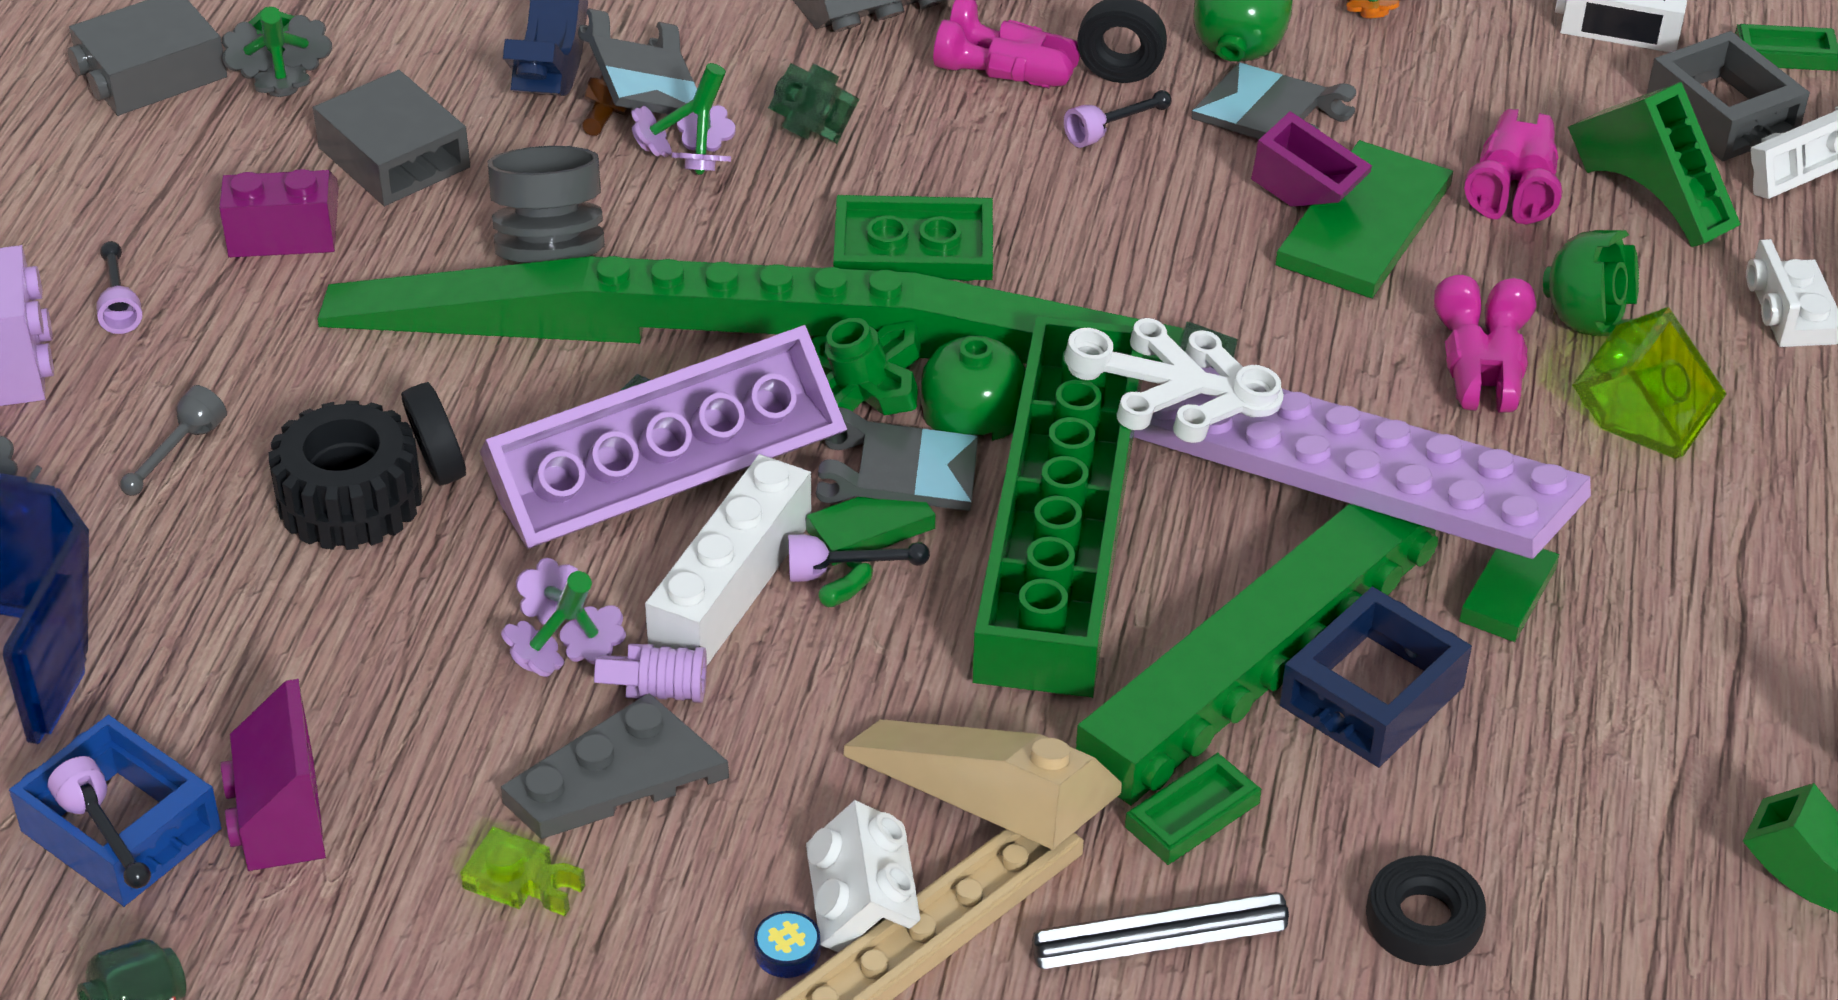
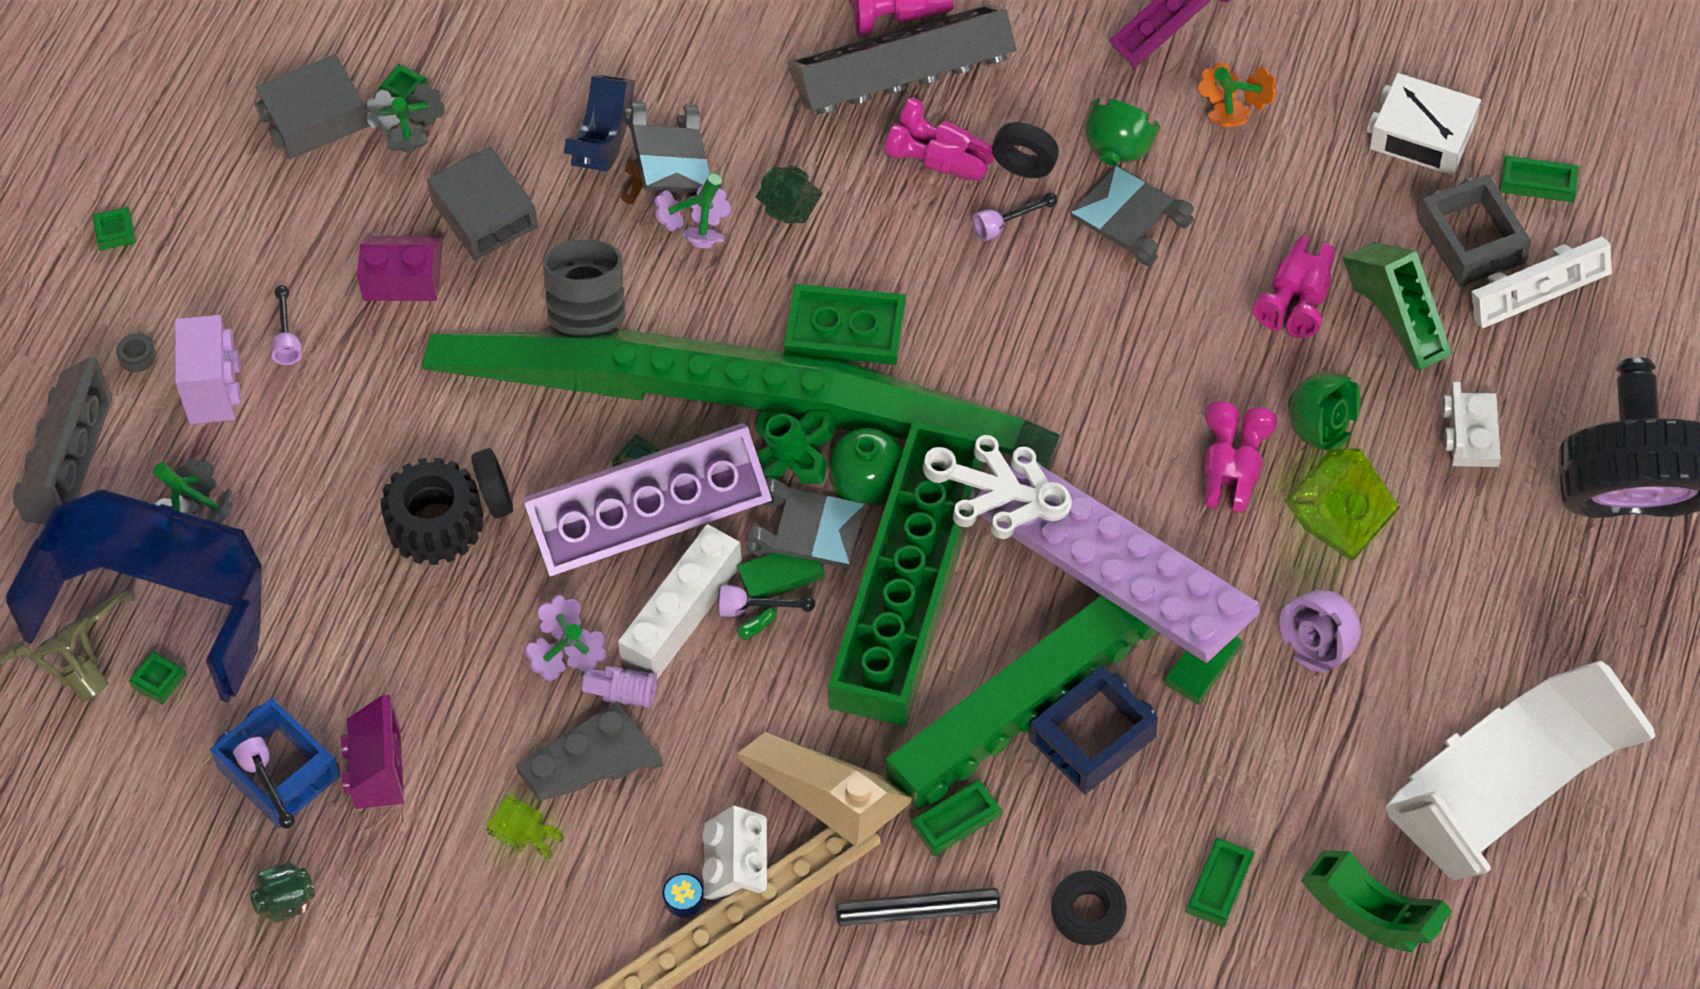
camera: 10 degrees right, 15 degrees up
(197, 414) = (336, 446): dark grey hinge -> none
(1305, 164) = (1138, 284): magenta slope -> none
(1369, 230) = (1177, 326): green tile -> none
(1615, 862) = (1220, 882): none -> green tile
(1670, 527) = (1321, 629): none -> lavender cylinder

